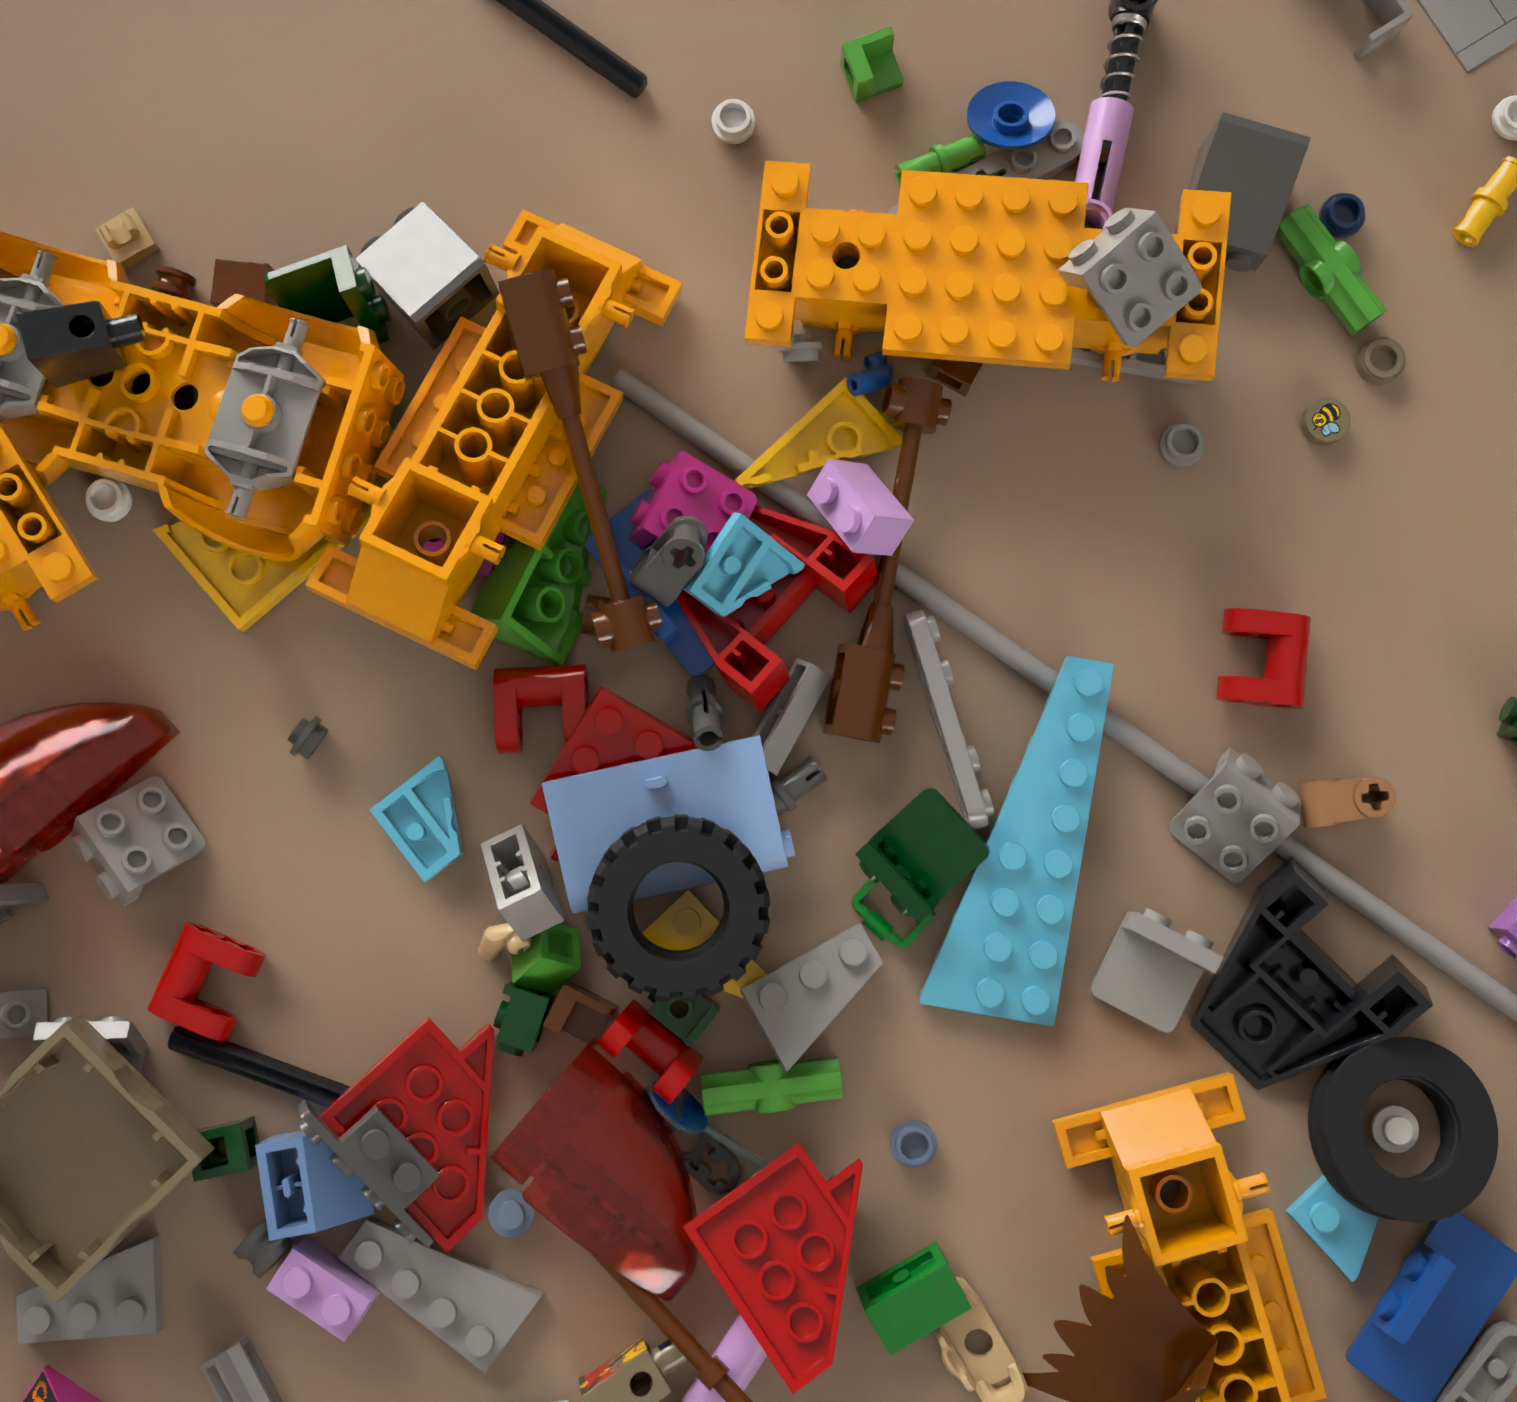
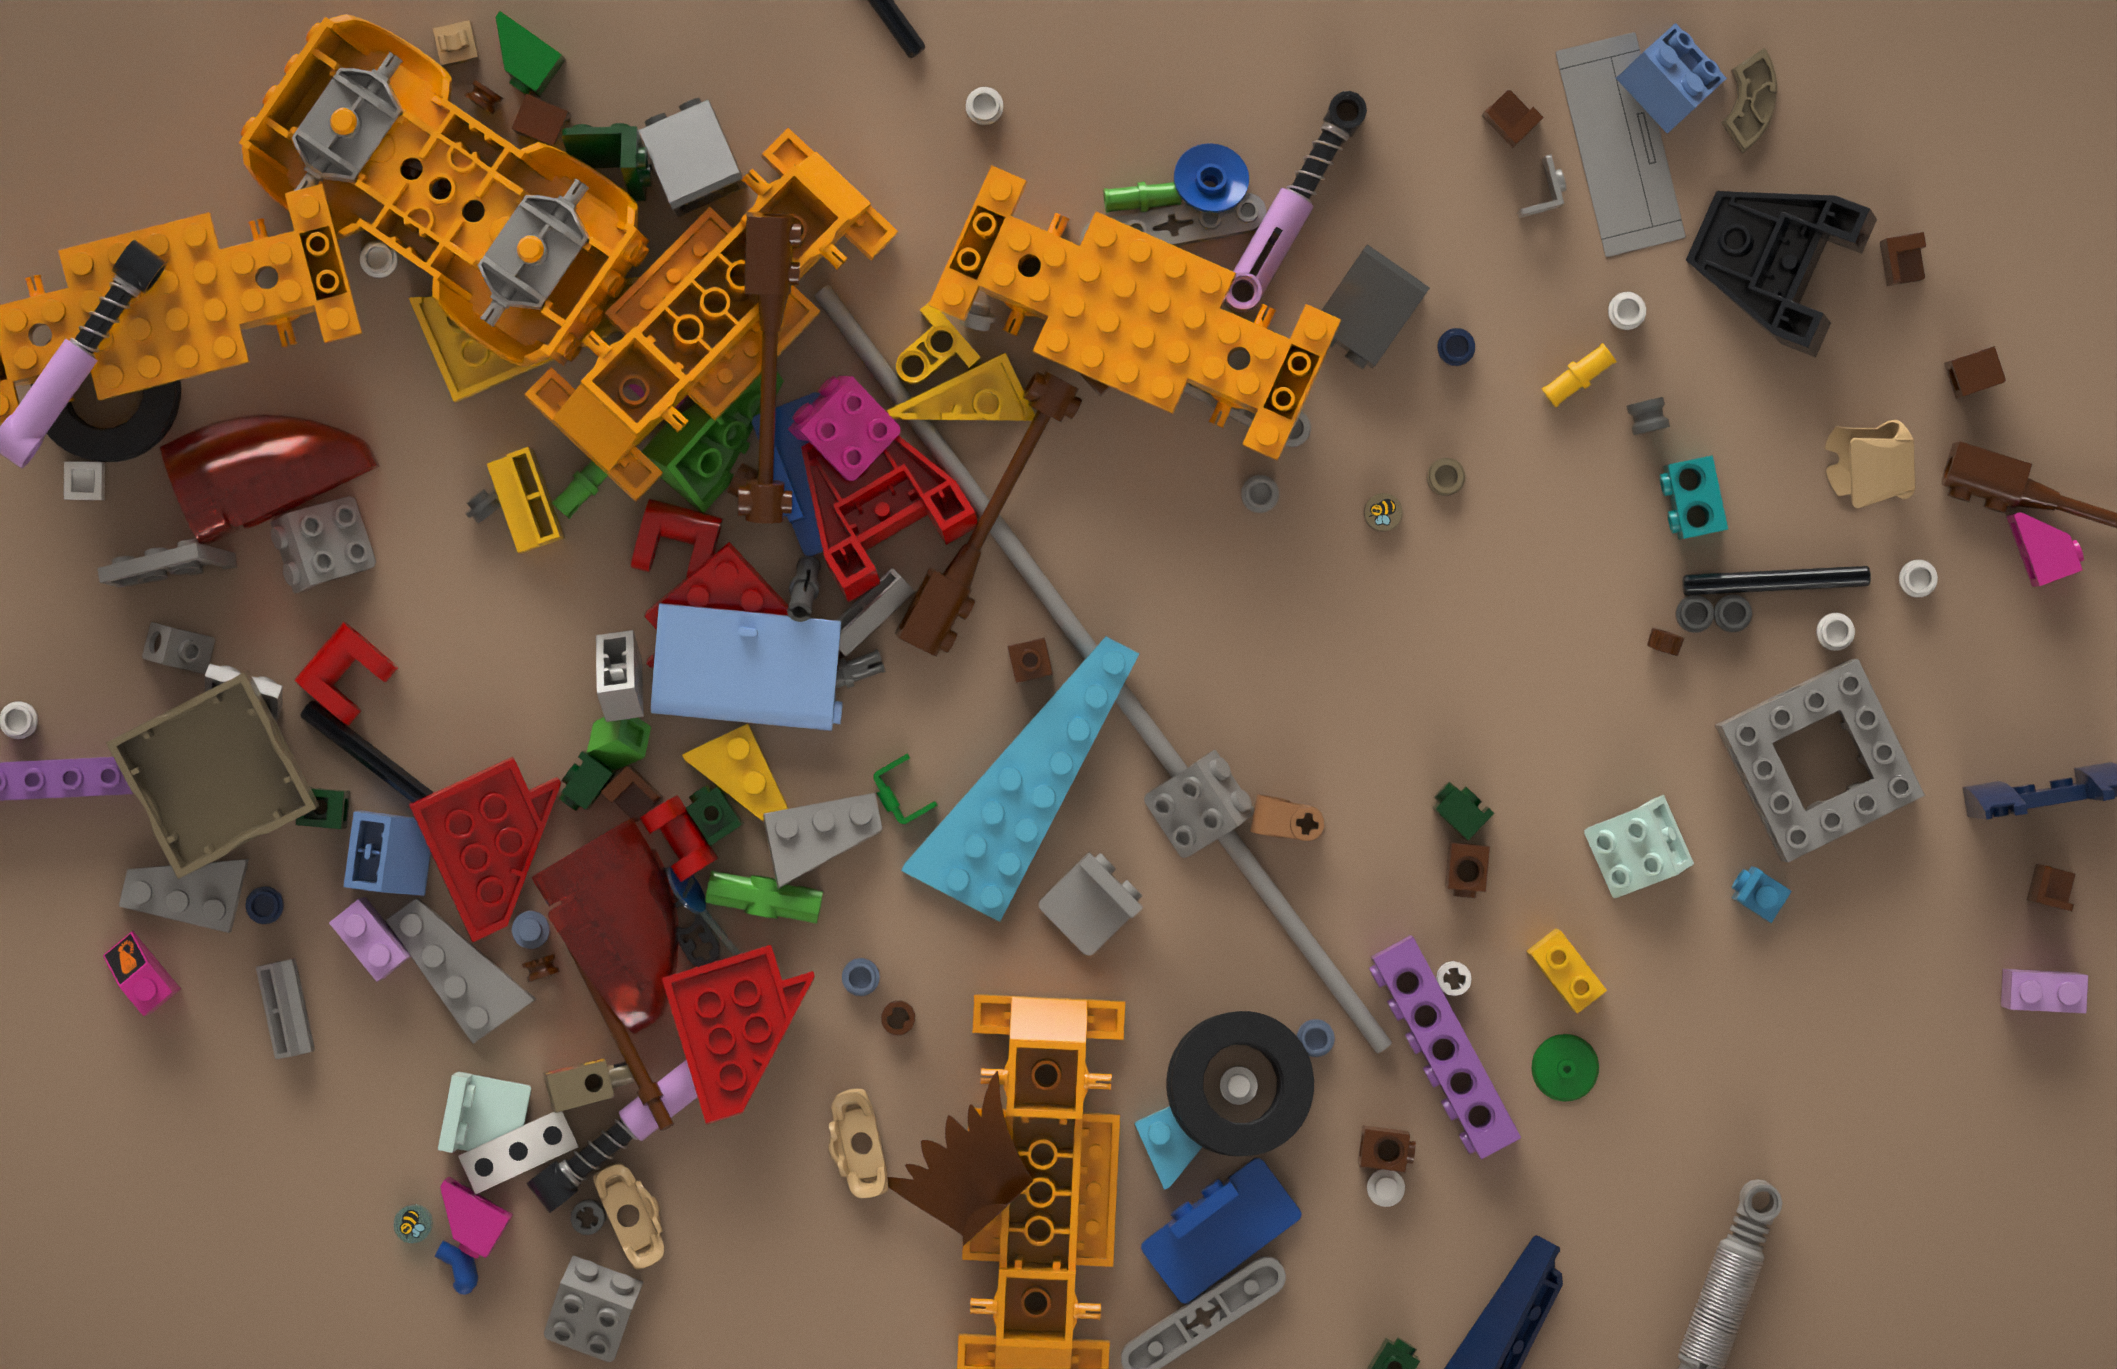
camera: 15 degrees right, 5 degrees up
(77, 340) = (394, 145): black torso -> none
(191, 1285) = (264, 905): none -> dark blue plate
(207, 222) = (526, 56): none -> green slope
(260, 1251) = (331, 893): dark grey wheel -> none
(354, 715) = (525, 500): none -> yellow piece
(382, 1159) = (448, 856): dark grey bracket -> none
(414, 682) = (580, 489): none -> bright green pin
(423, 820) = (555, 601): medium azure wing -> none
(496, 937) = (588, 712): tan arm -> none
(538, 1256) = (541, 967): none -> reddish brown bush
(671, 560) = (814, 463): dark grey piece -> none
(678, 971) = (734, 786): black tyre -> none
(740, 566) = (866, 485): medium azure wing -> none
(765, 409) = (932, 359): none -> yellow tile
(860, 507) = (978, 465): lavender brick -> none
(871, 64) = (1113, 97): bright green panel -> none
(875, 378) = (1024, 362): blue arm -> none
(913, 1298) = (821, 1092): green panel -> none
(922, 853) = (939, 754): dark green bracket -> none
(959, 1175) = (907, 1024): none -> reddish brown bush
(961, 759) = (996, 690): light grey piece -> none
(989, 712) = (1030, 660): none -> reddish brown brick
(1133, 273) = (1236, 363): light grey bracket -> none
(1284, 658) = (1279, 695): red connector -> none
(1288, 1004) = (1188, 958): black wedge -> none
(1329, 270) = (1427, 389): bright green piece -> none
(1464, 1040) = (1316, 1037): none -> sand blue plate

